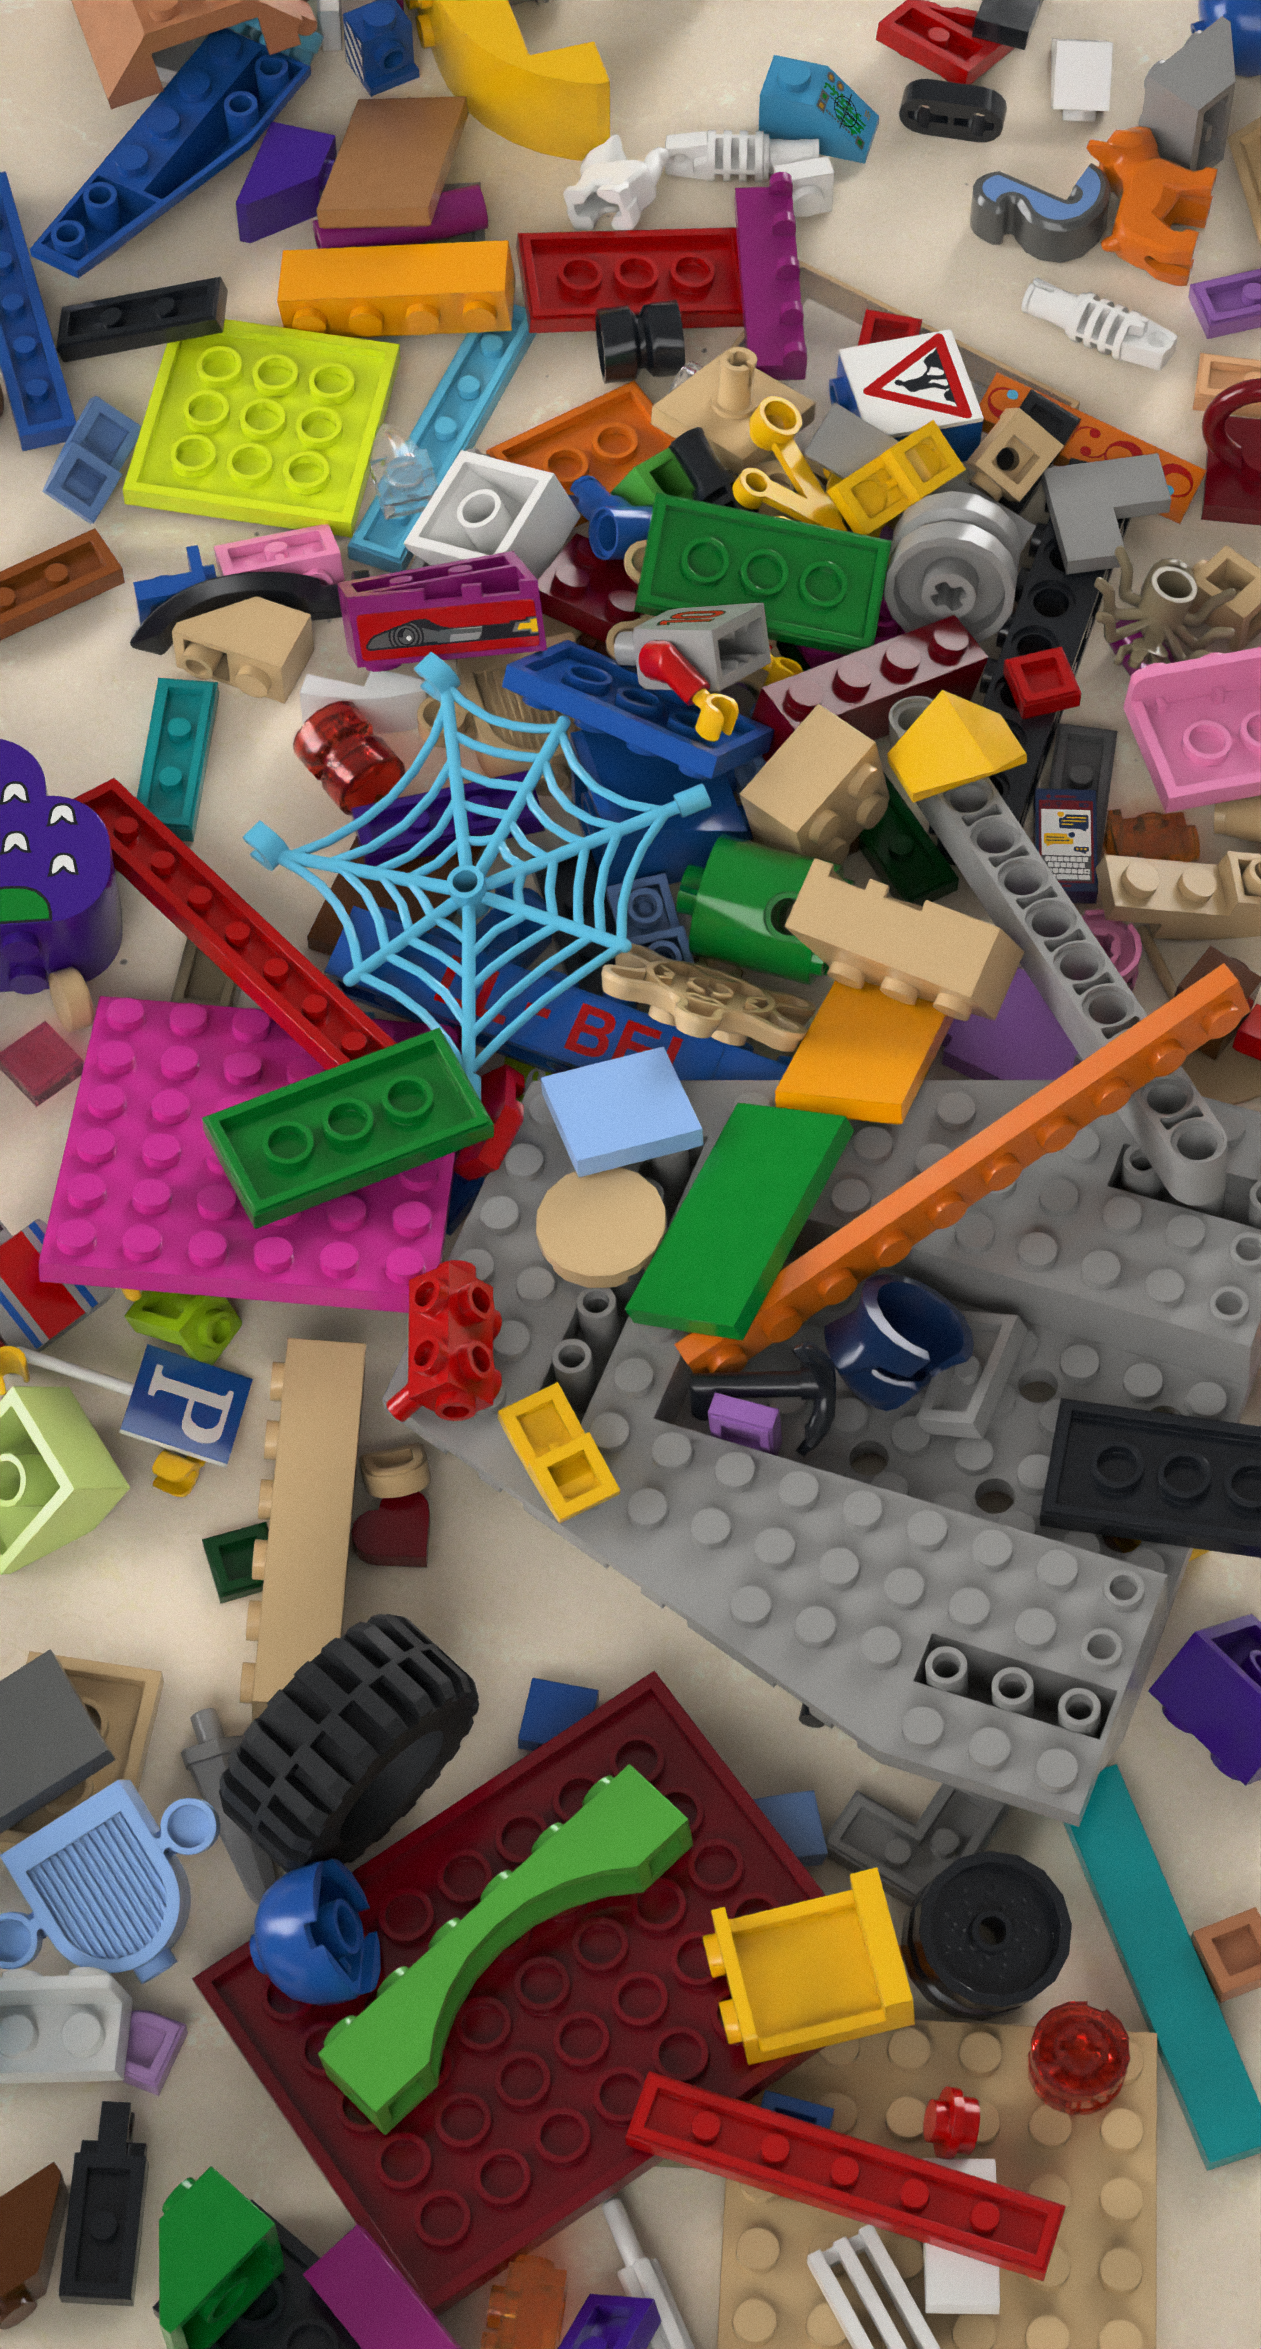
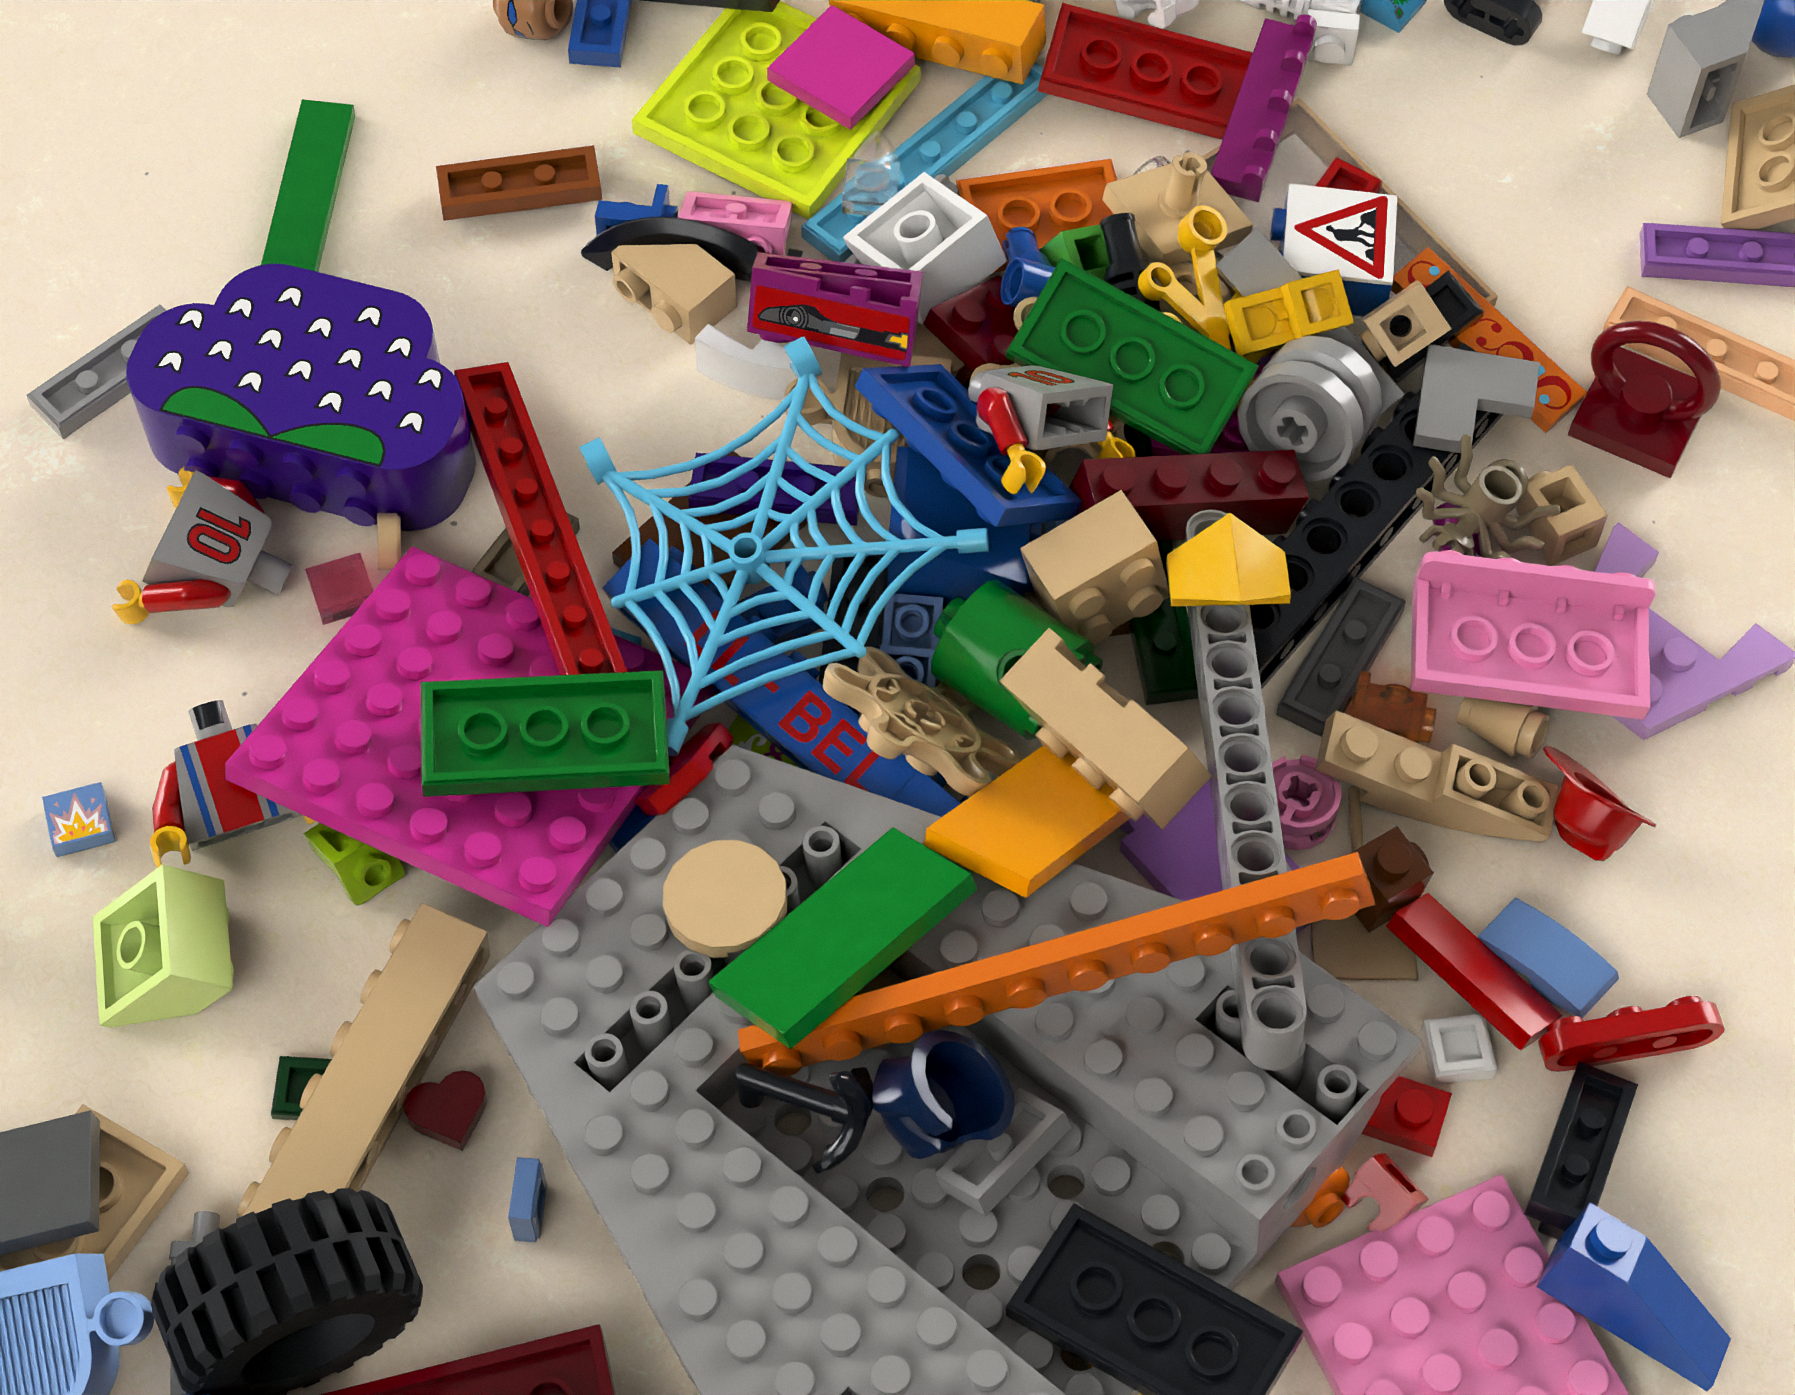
camera: 20 degrees right, 0 degrees up
(92, 459) = (619, 87): medium blue slope -> none
(173, 1401) = (310, 927): blue piece -> none
(176, 1473) = (288, 991): yellow hand -> none
(178, 752) = (577, 361): teal tile -> none
(322, 368) = (841, 67): none -> dark pink tile
(347, 756) = (713, 404): clear red wheel -> none
(395, 1471) = (469, 1055): tan tile -> none
(450, 1345) = (540, 960): red brick -> none
(520, 1586) = (527, 1200): none -> medium blue tile
(552, 1709) = (508, 1323): blue tile -> none
(558, 1453) = (590, 1093): yellow slope -> none
(621, 1111) = (787, 800): light blue tile -> none
(639, 341) = (1126, 126): black wheel -> none
(745, 1423) = (772, 1127): medium lavender tile -> none
(1040, 220) = (1529, 126): dark grey animal -> none
(1042, 682) = (1347, 535): red tile -> none
(1068, 839) = (1310, 689): tile -> none
(1101, 324) = (1547, 234): white hinge -> none
(1153, 198) = (1638, 136): orange animal -> none

